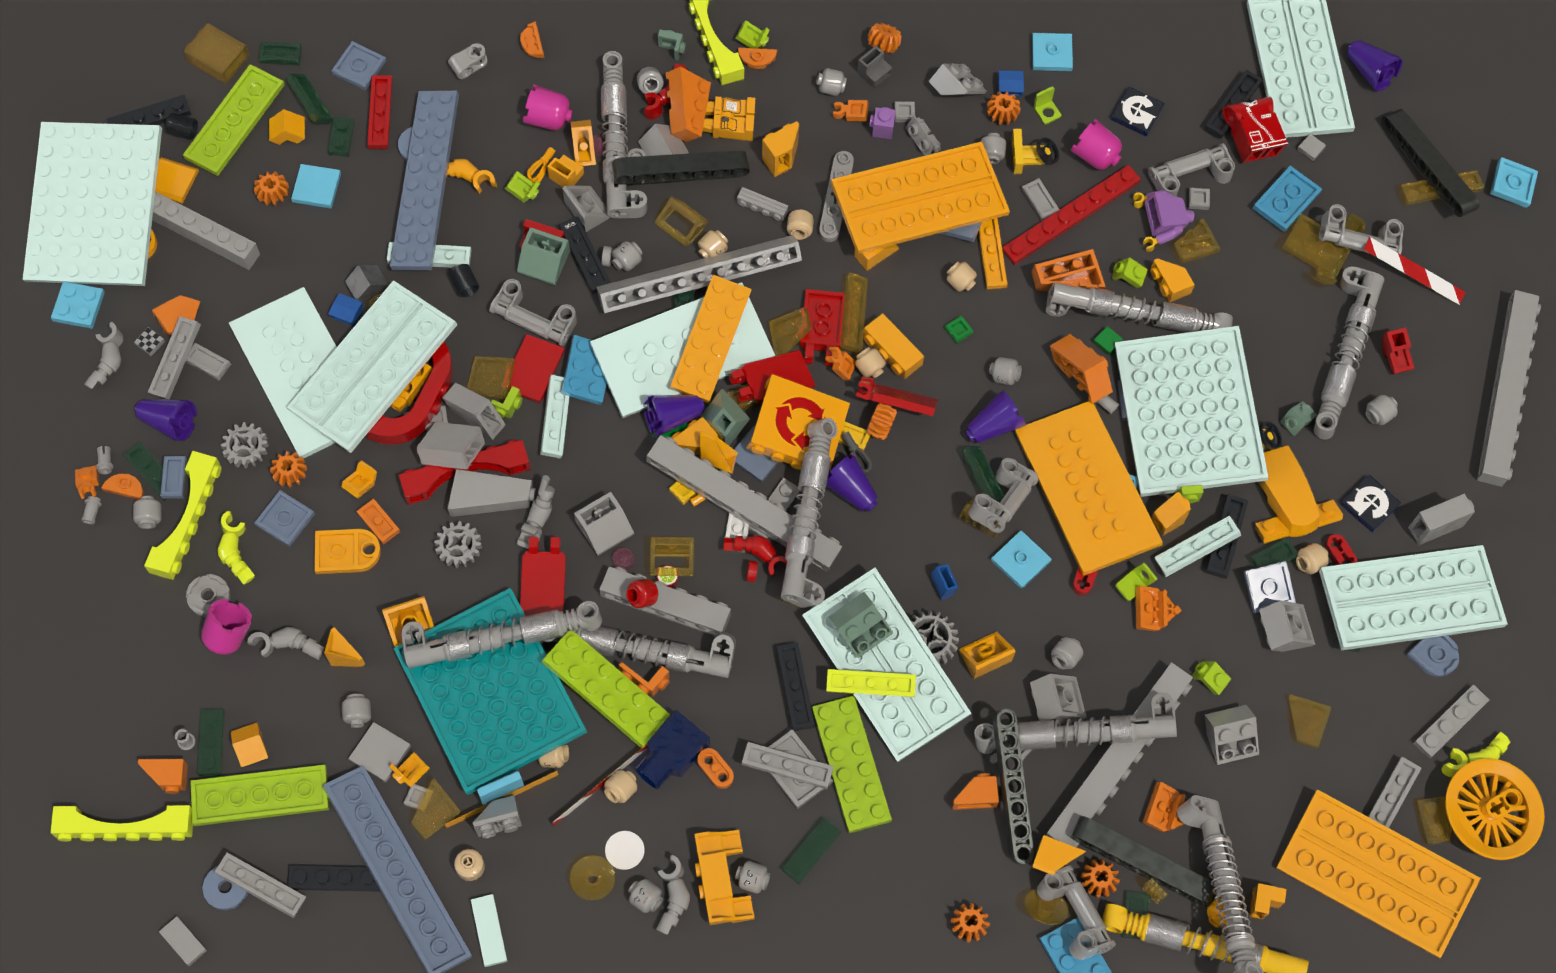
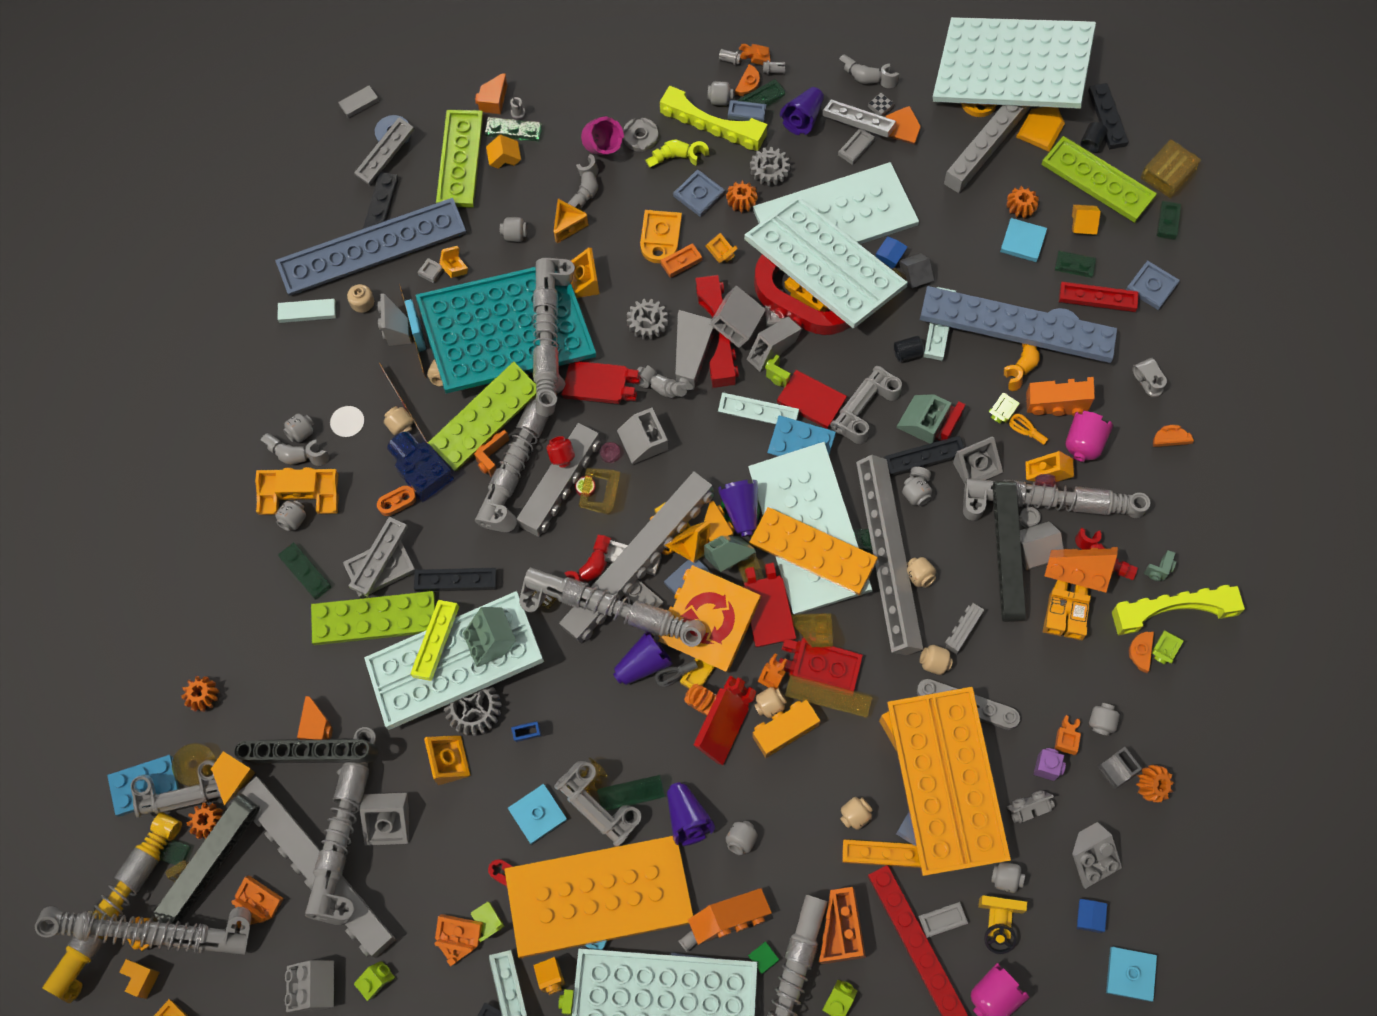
camera: 105 degrees right, 0 degrees up
(77, 305) = (923, 56): medium azure plate -> none
(173, 823) = (468, 33): neon yellow arch -> none
(309, 99) = (1116, 239): clear green plate -> none
(378, 751) = (477, 245): light grey tile -> none
(434, 811) = (413, 278): clear yellow wing -> none
(491, 376) = (806, 361): clear yellow tile -> none
(505, 135) = (1060, 398): none -> orange wedge
(565, 171) = (1018, 448): light orange piece -> none
(592, 866) = (321, 384): clear yellow dish -> none
(647, 85) = (1115, 536): light grey head -> none
(676, 204) = (959, 554): clear yellow tile -> none
(751, 571) = (573, 558): red tile -> none
(780, 148) = (1022, 652): light orange slope -> none
(904, 111) = (1064, 793): light grey tile -> none
(958, 329) = (798, 801): green tile -> none
(1003, 108) = (1064, 908): orange gear -> none
(1043, 101) = (1066, 951): lime bracket -> none
(1067, 653) = (429, 836): light grey head -> none

